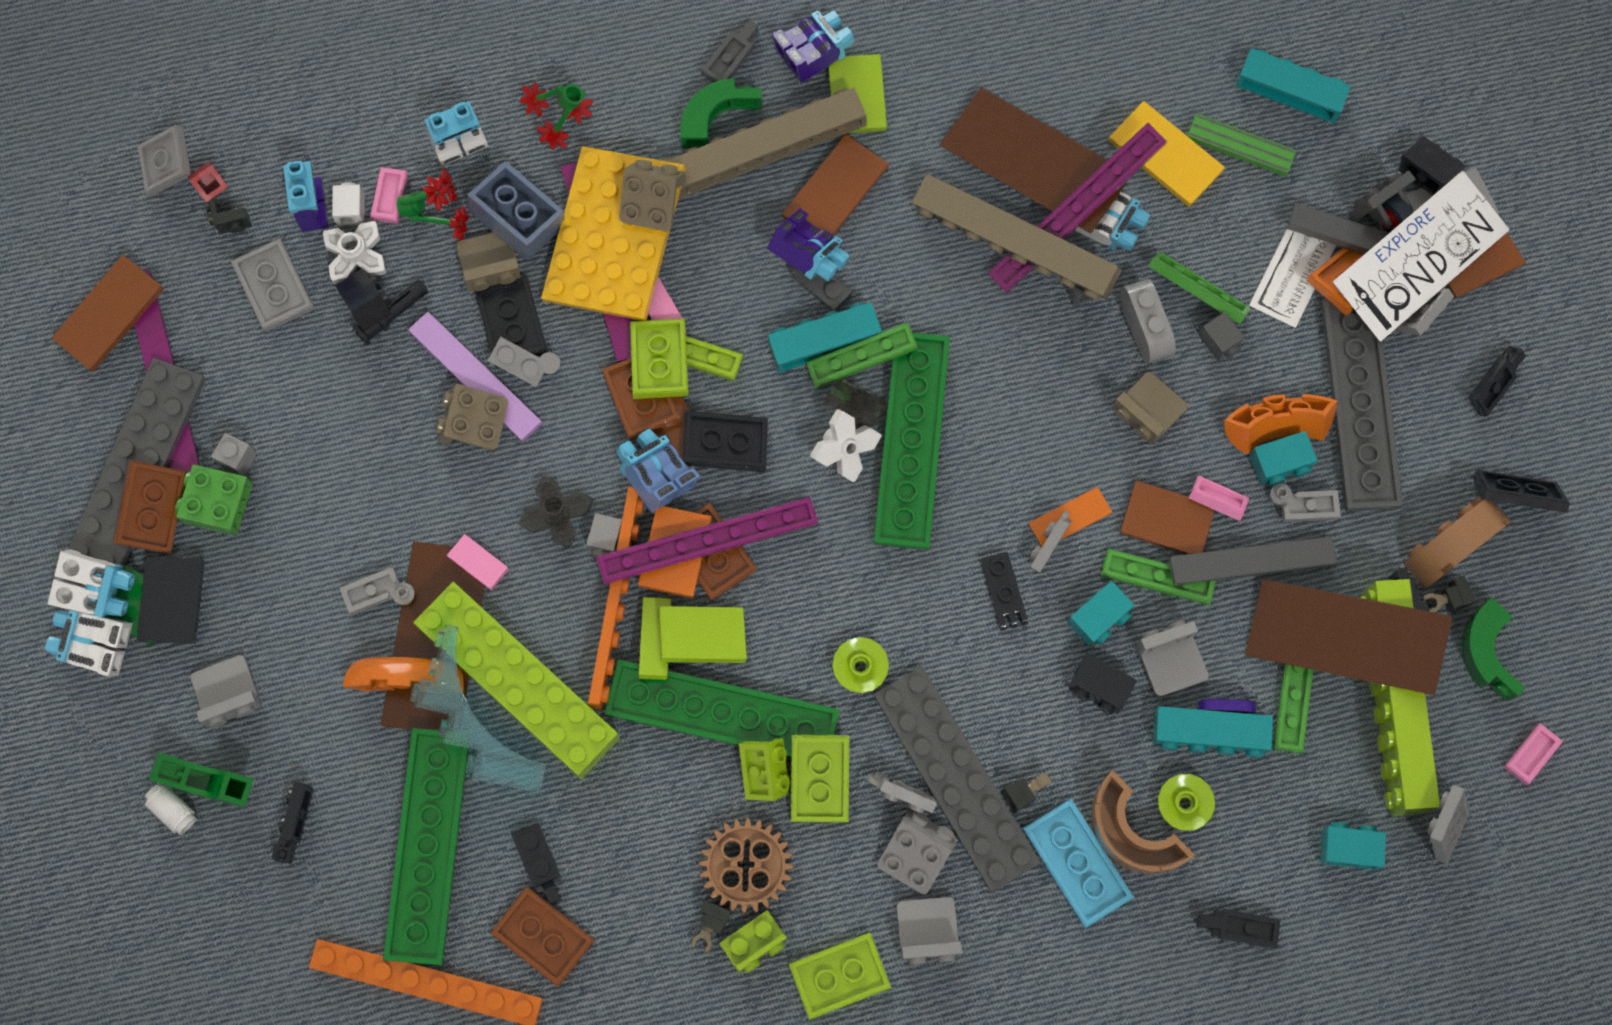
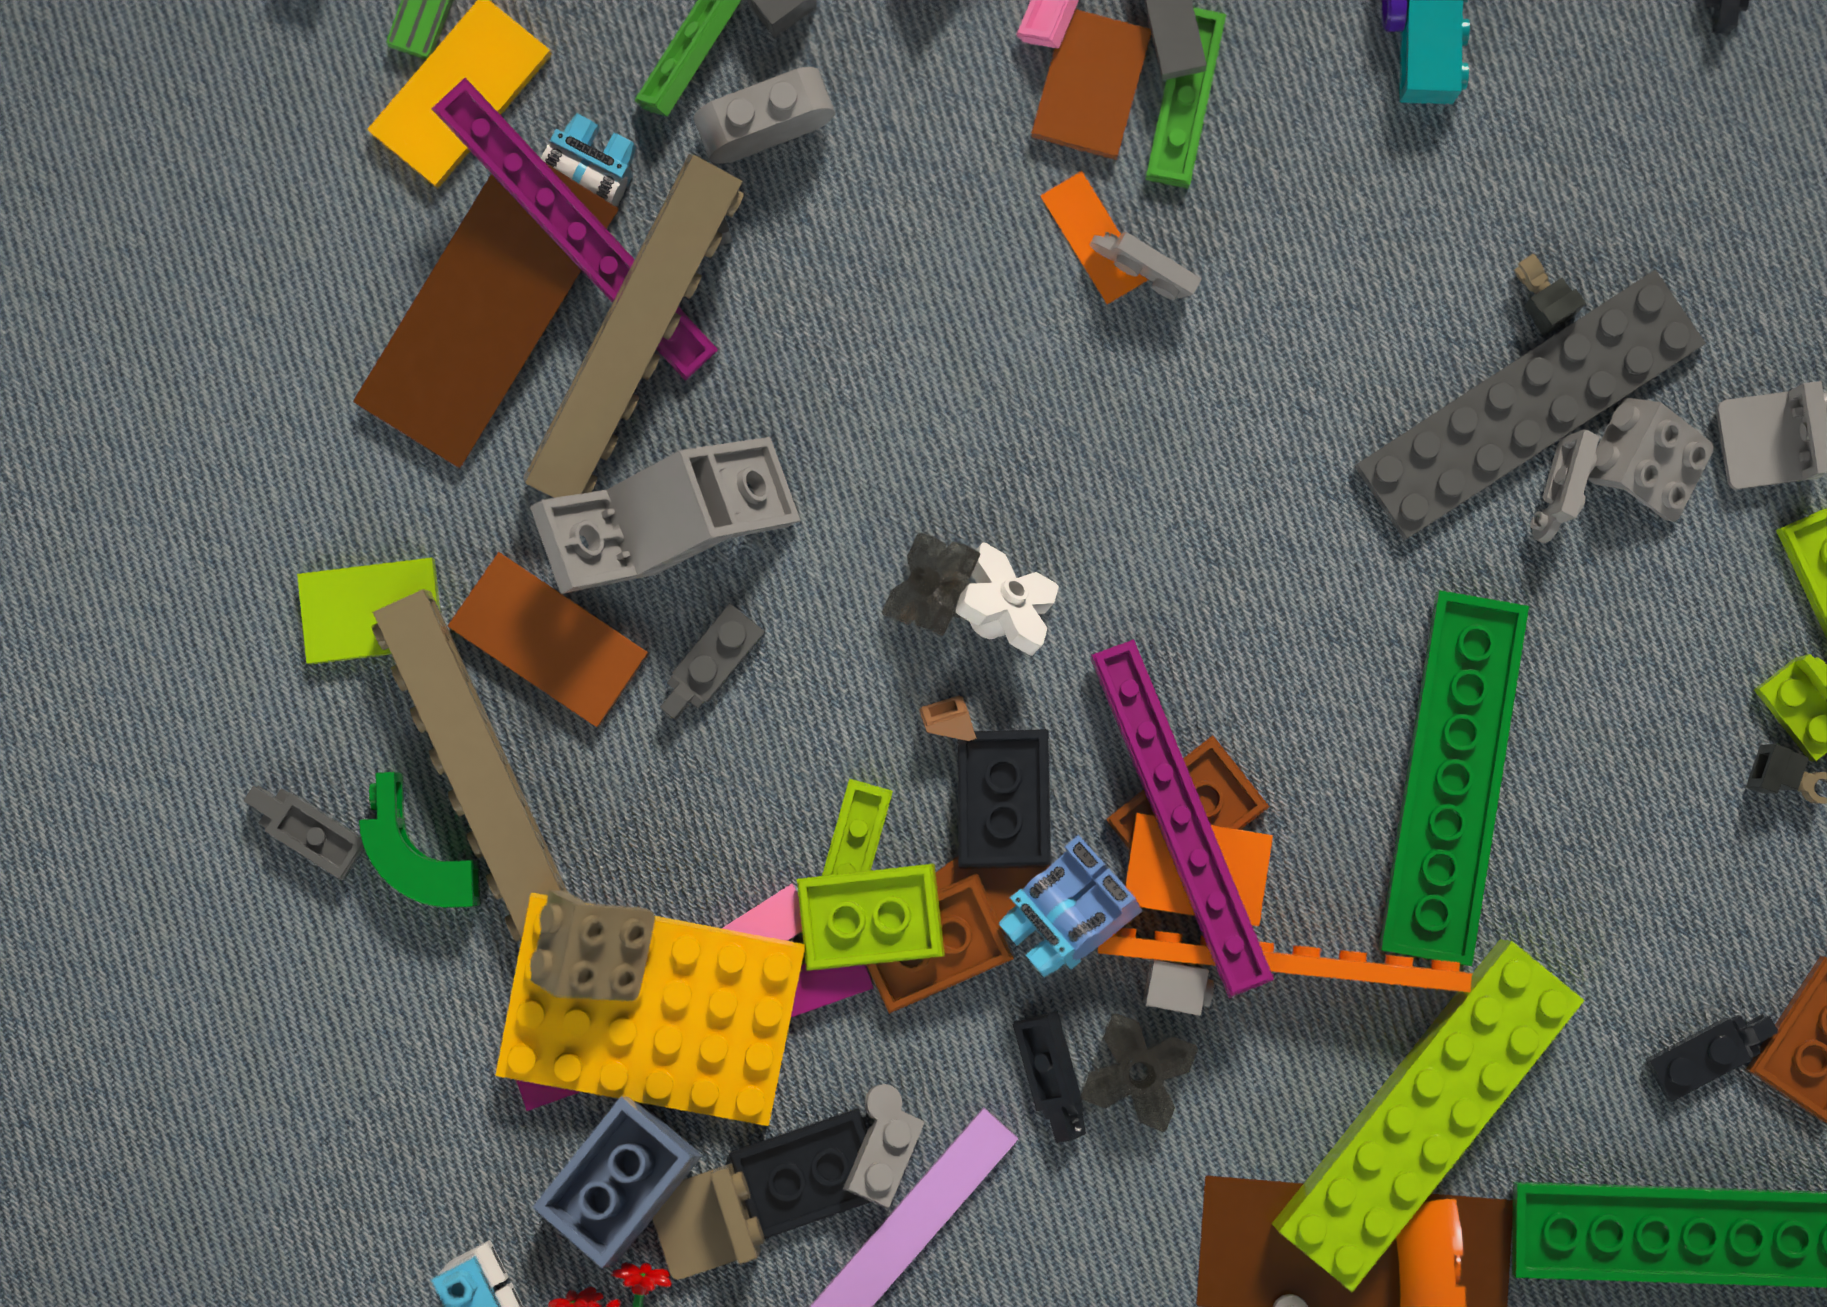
camera: 90 degrees left, 10 degrees up
(444, 695) = (1566, 1146): clear light blue arch -> none
(471, 417) = (989, 1226): dark tan bracket -> none
(477, 562) = (1229, 1194): bright pink tile -> none
(557, 460) = (1051, 1074): none -> black hinge
(569, 99) = (417, 1105): red plant -> none
(650, 659) = (1343, 892): lime tile -> none
(702, 634) = (1334, 816): lime tile -> none
(764, 769) = (1547, 704): lime bracket -> none
(772, 866) = (1696, 764): medium nougat gear -> none
(775, 412) = (948, 719): none -> medium nougat slope
(808, 247) = (665, 676): hips -> none
(813, 44) = (286, 688): hips -> none
(819, 337) = (814, 643): teal brick -> none
(820, 778) = (1551, 615): lime tile -> none
(862, 355) = (844, 580): bright green tile -> none
(866, 652) = (1380, 544): lime dish -> none
(905, 250) = (665, 514): none -> light grey bracket
(912, 445) = (982, 493): green plate -> none
(1003, 589) = (1222, 339): black hinge -> none
(1078, 863) = (1647, 214): medium azure tile -> none
(1100, 614) = (1257, 182): teal brick -> none
(1101, 684) = (1370, 180): black brick -> none
(1121, 842) = (1640, 114): medium nougat brick -> none
(1150, 407) = (908, 112): dark tan bracket -> none
(1172, 658) = (1321, 71): light grey bracket -> none
(1200, 802) = (1556, 30): lime dish -> none

